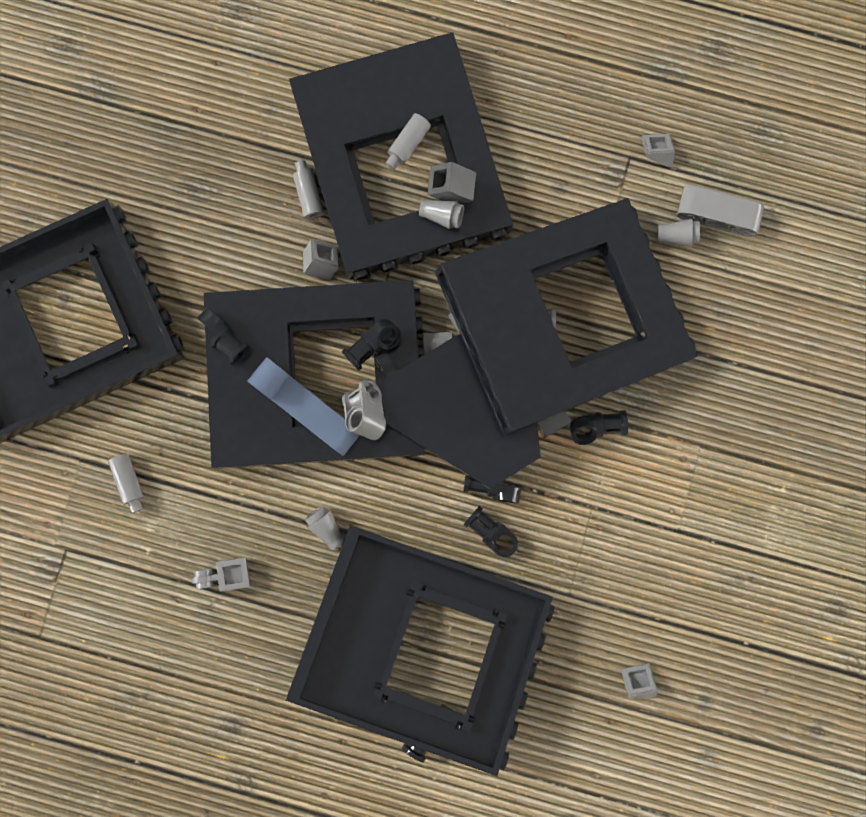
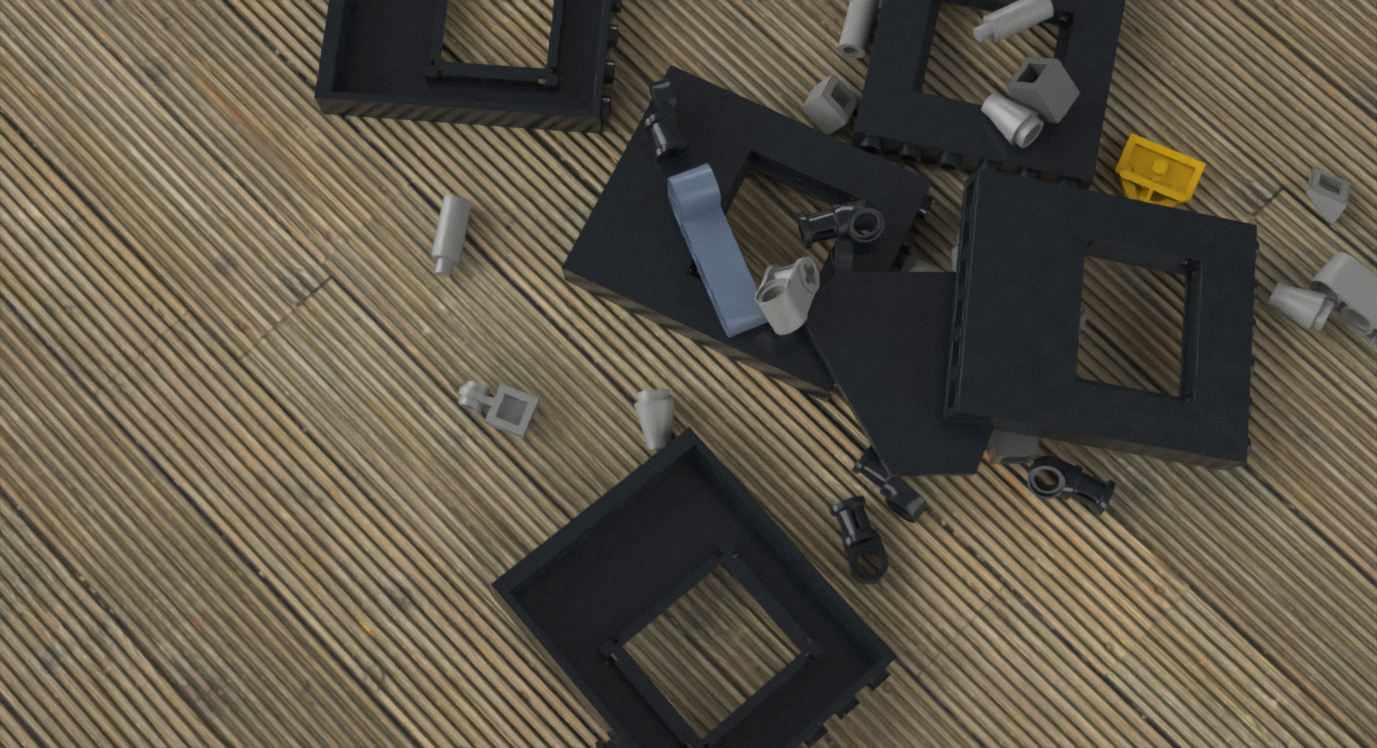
camera: 35 degrees right, 10 degrees down
(548, 195) = (1156, 173): none -> yellow slope

